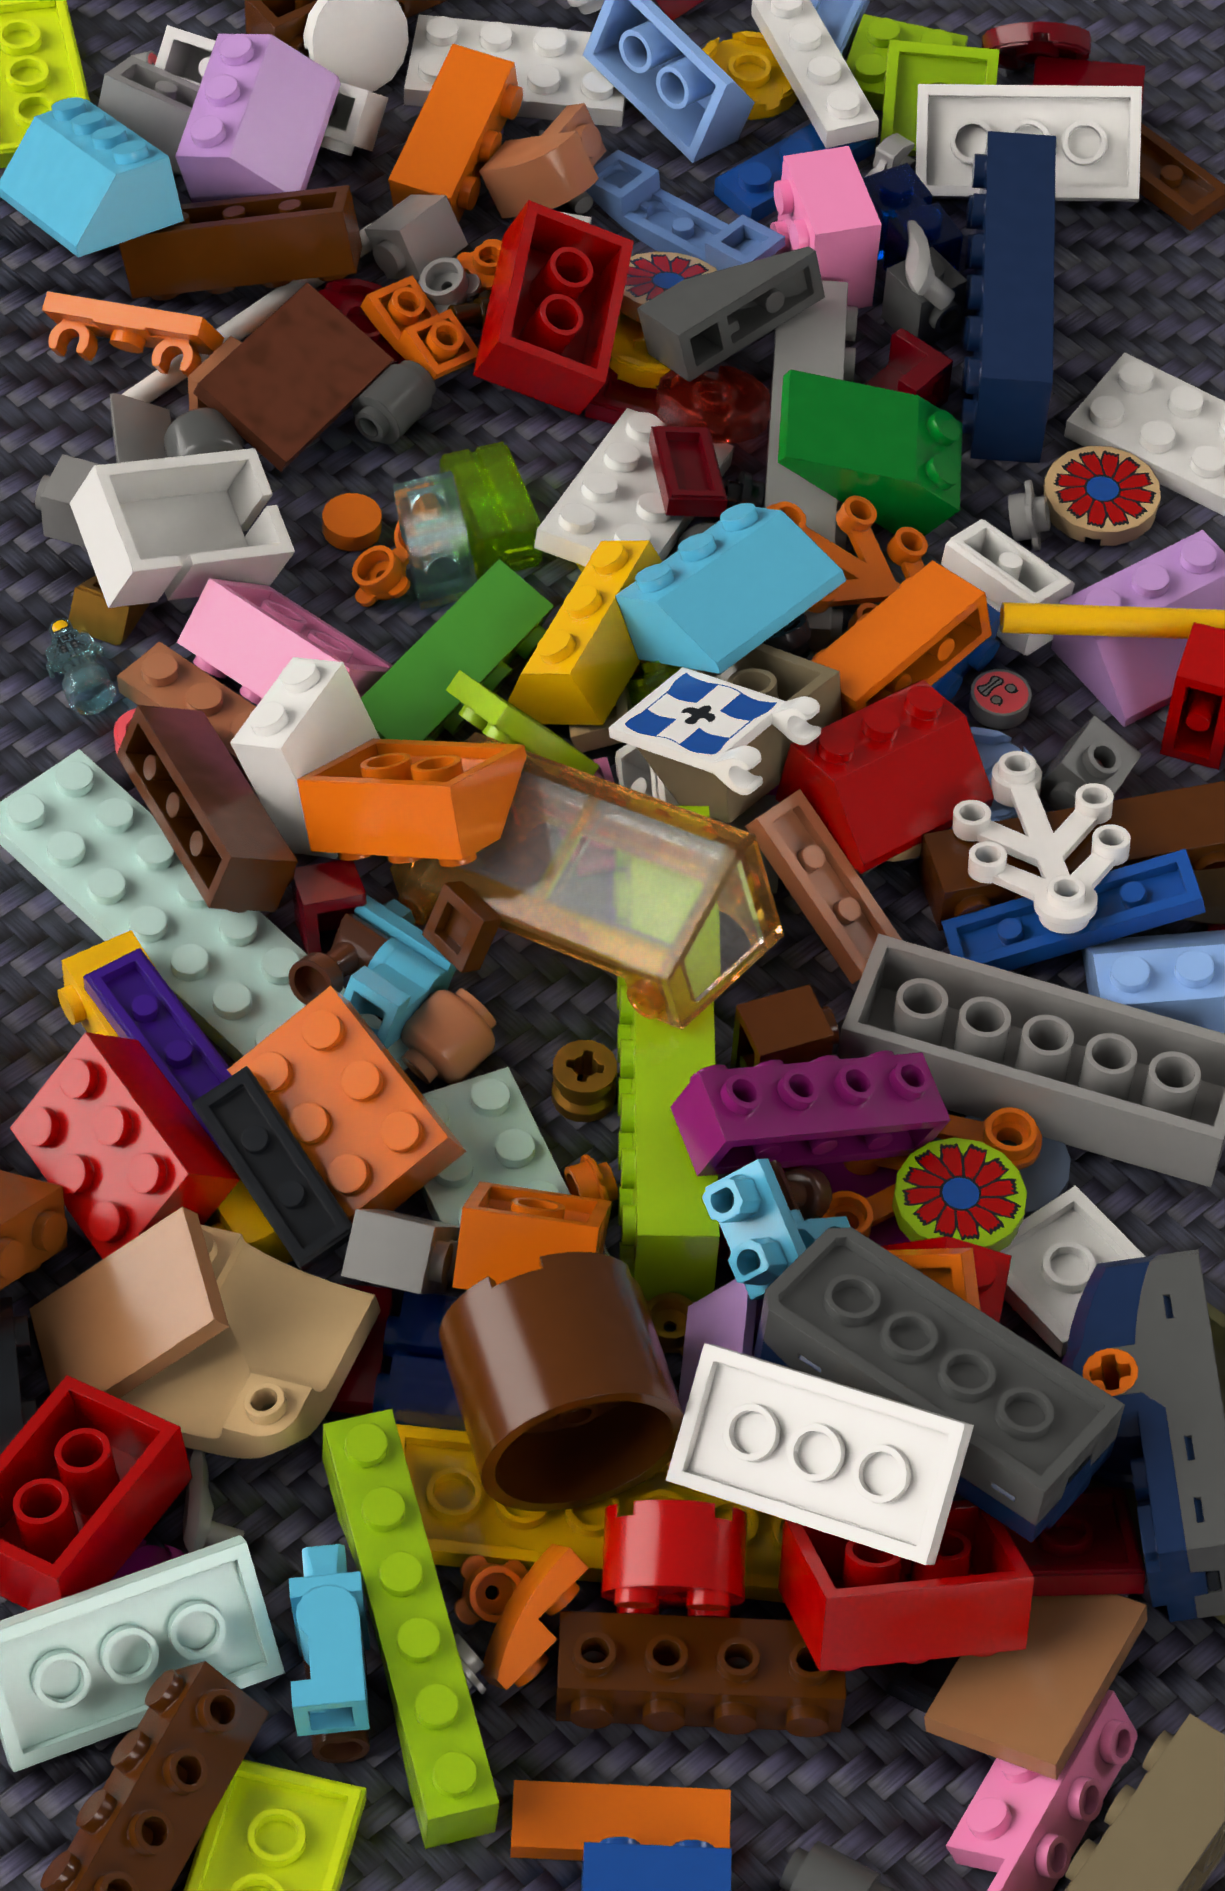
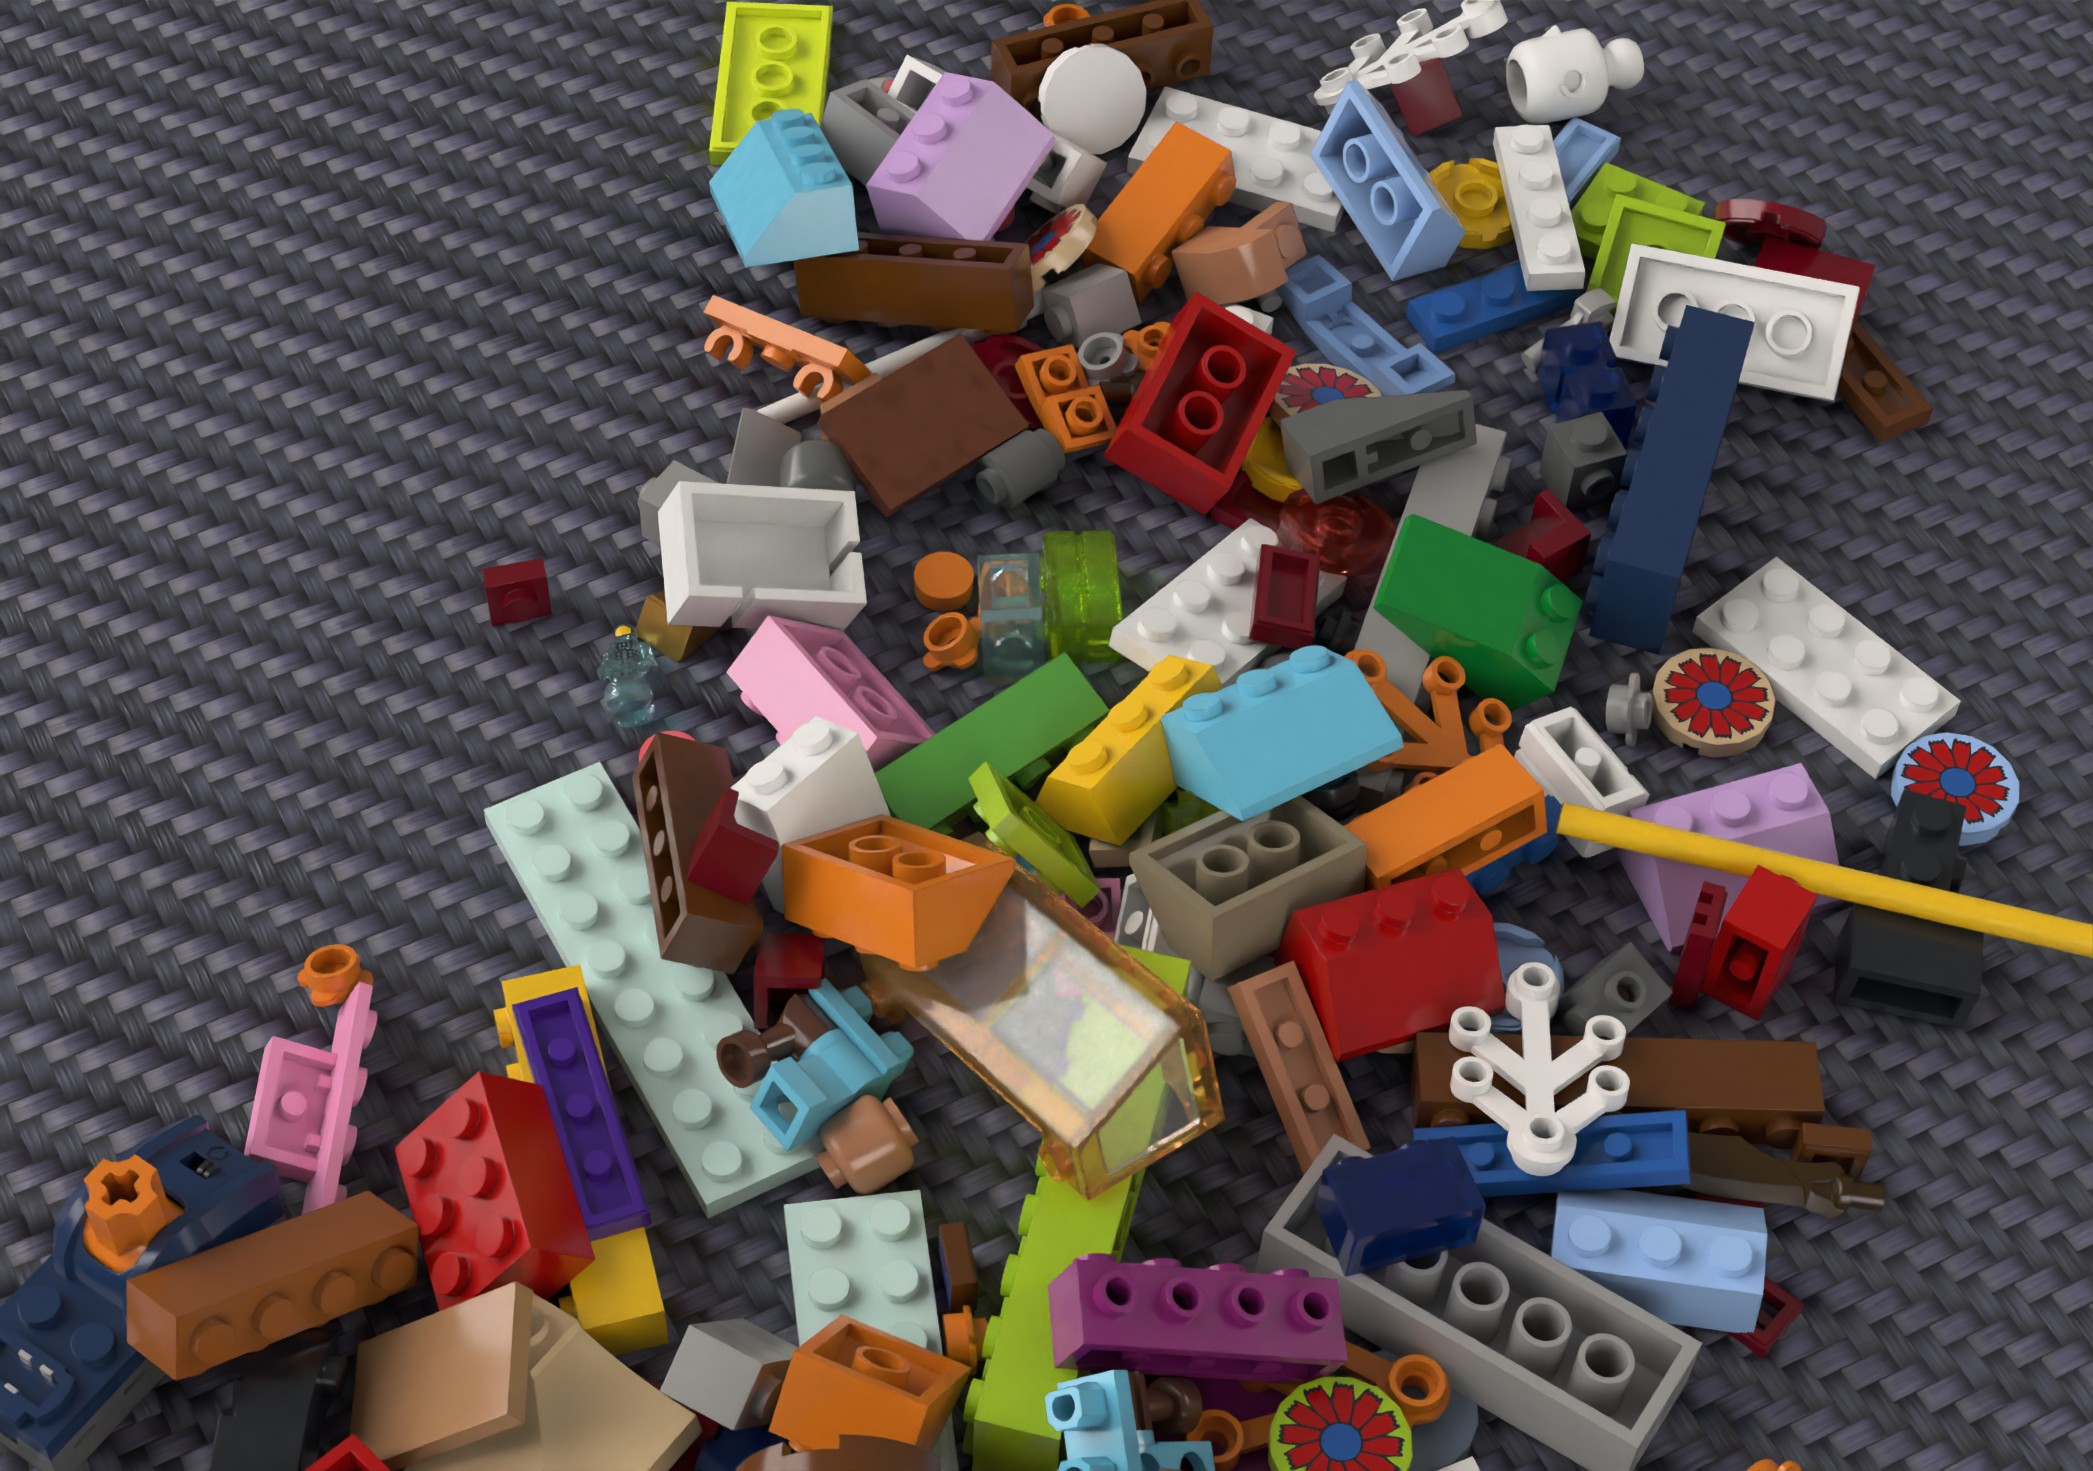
camera: 15 degrees right, 0 degrees up
(172, 681) = (717, 716): nougat plate -> none
(253, 795) = (730, 856): none -> dark red panel
(274, 1168) = (631, 1255): black tile -> none
(351, 1106) = (729, 1205): orange brick -> none
(372, 177) = (1060, 242): none -> tan tile
(462, 926) = (906, 1033): reddish brown tile -> none
(565, 1124) = (958, 1267): none -> reddish brown tile
(595, 1092) = (995, 1237): pearl gold wheel -> none
(711, 724) = (1210, 869): white flag -> none
(783, 1028) = (1202, 1224): reddish brown brick -> none
(830, 210) = (1503, 366): bright pink brick -> none
(920, 271) = (1579, 435): light grey bar -> none
(959, 978) = (1399, 1205): none -> clear blue brick
(1000, 699) = (1546, 898): tile -> none
(1154, 707) = (1698, 945): none -> dark red tile

